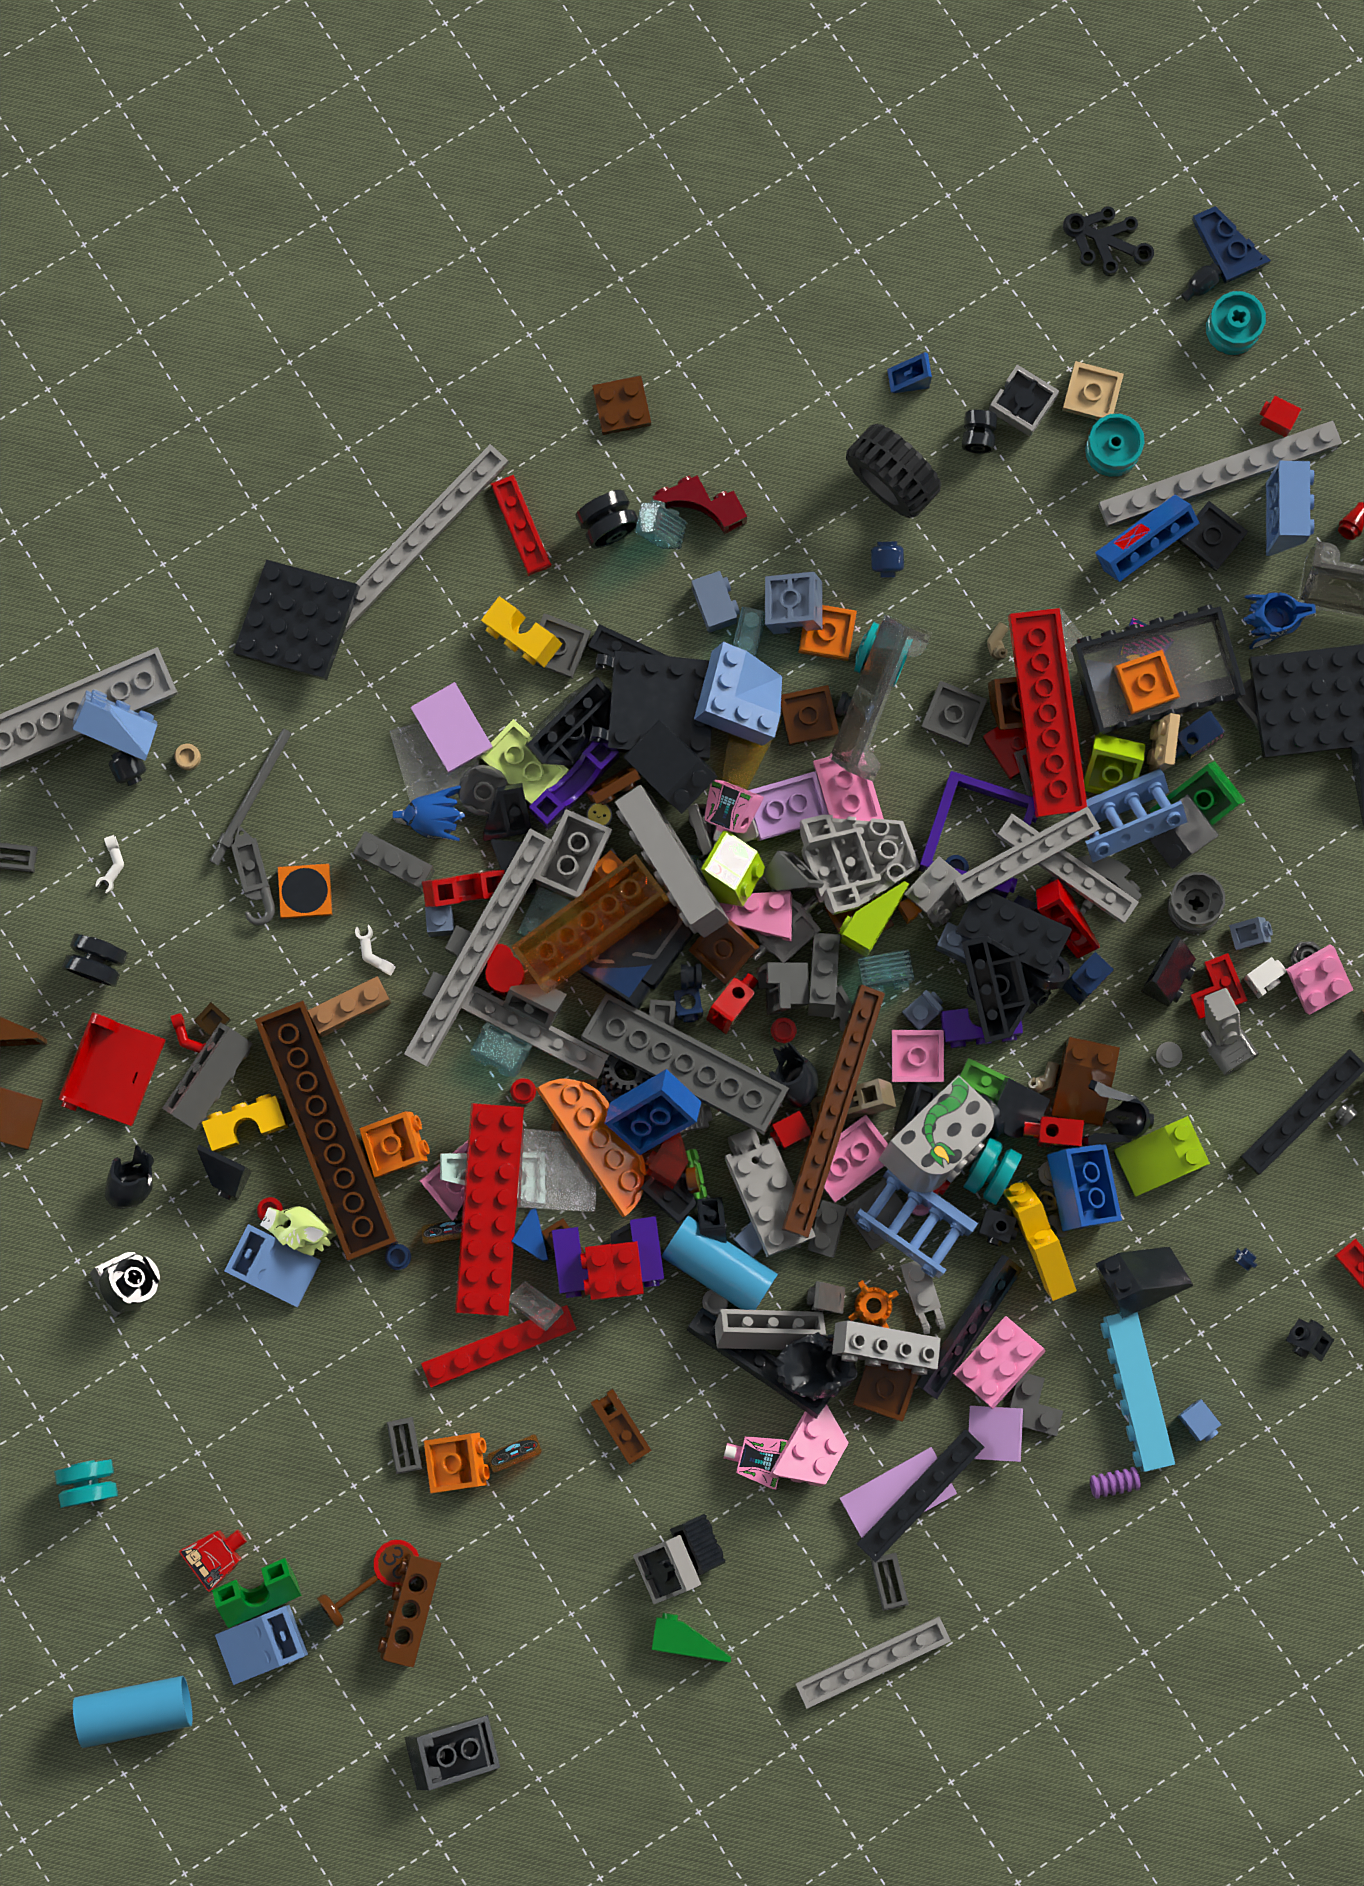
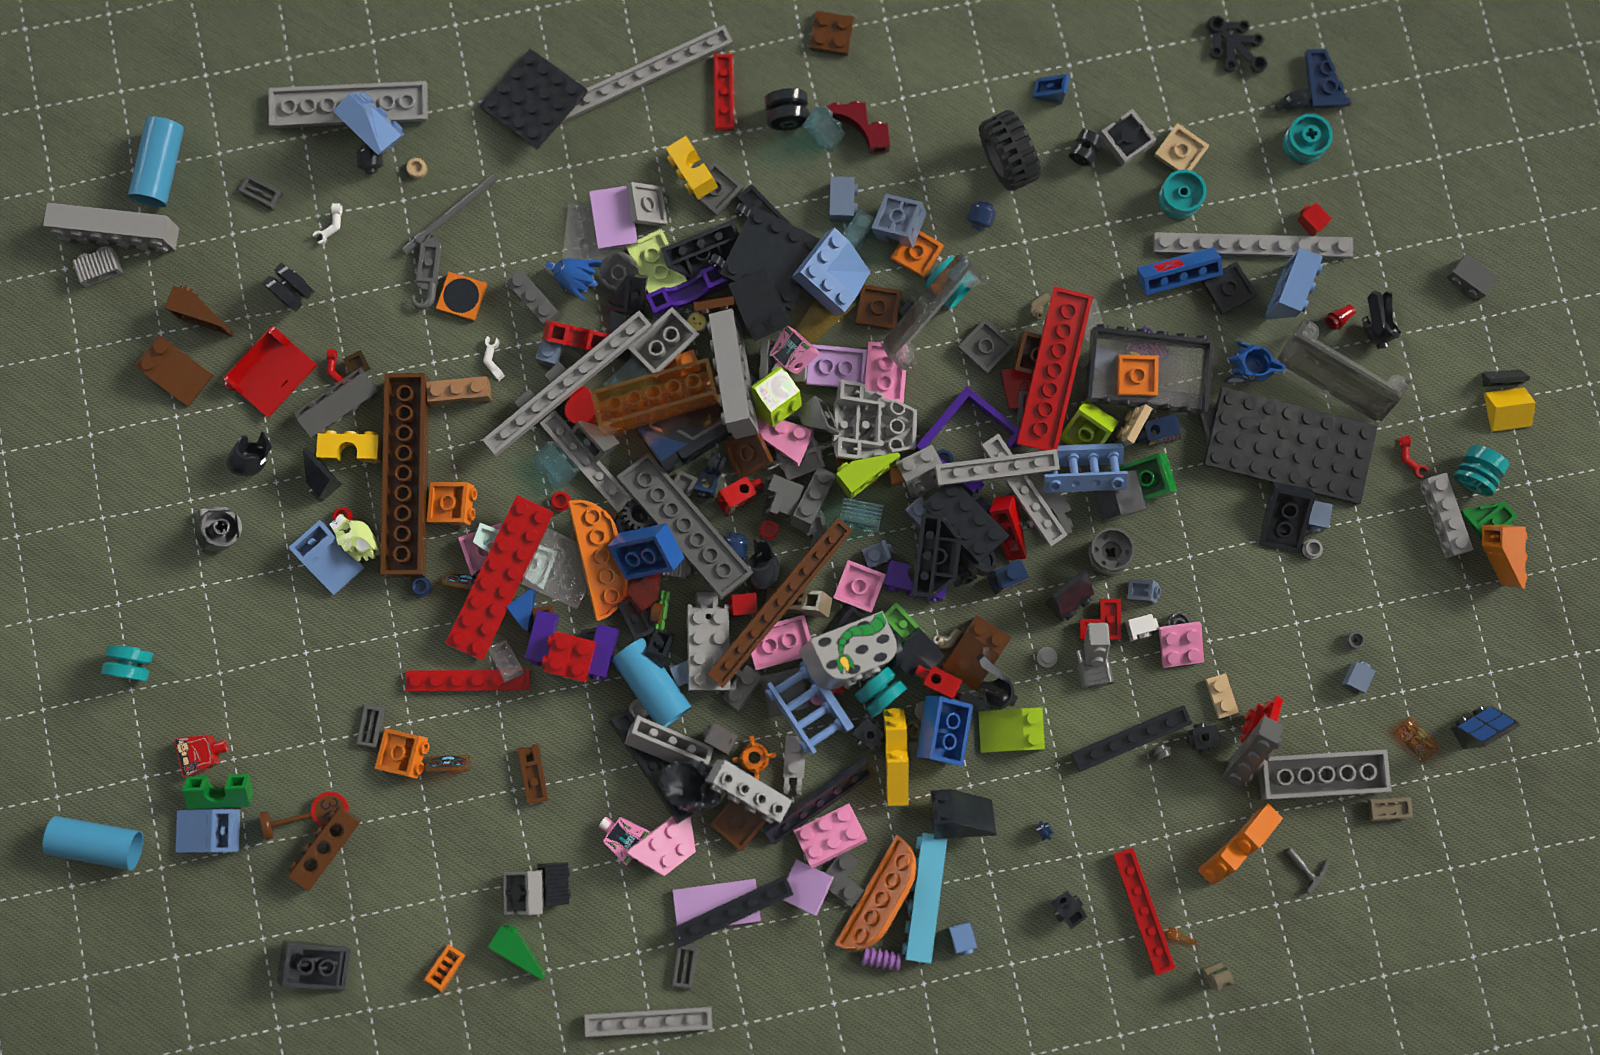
camera: 20 degrees right, 0 degrees up
(485, 696) = (646, 204): none -> light grey plate
(603, 1718) = (438, 964): none -> orange slope
(755, 1060) = (738, 543): none -> dark blue head
(1087, 1412) = (881, 898): none -> orange plate

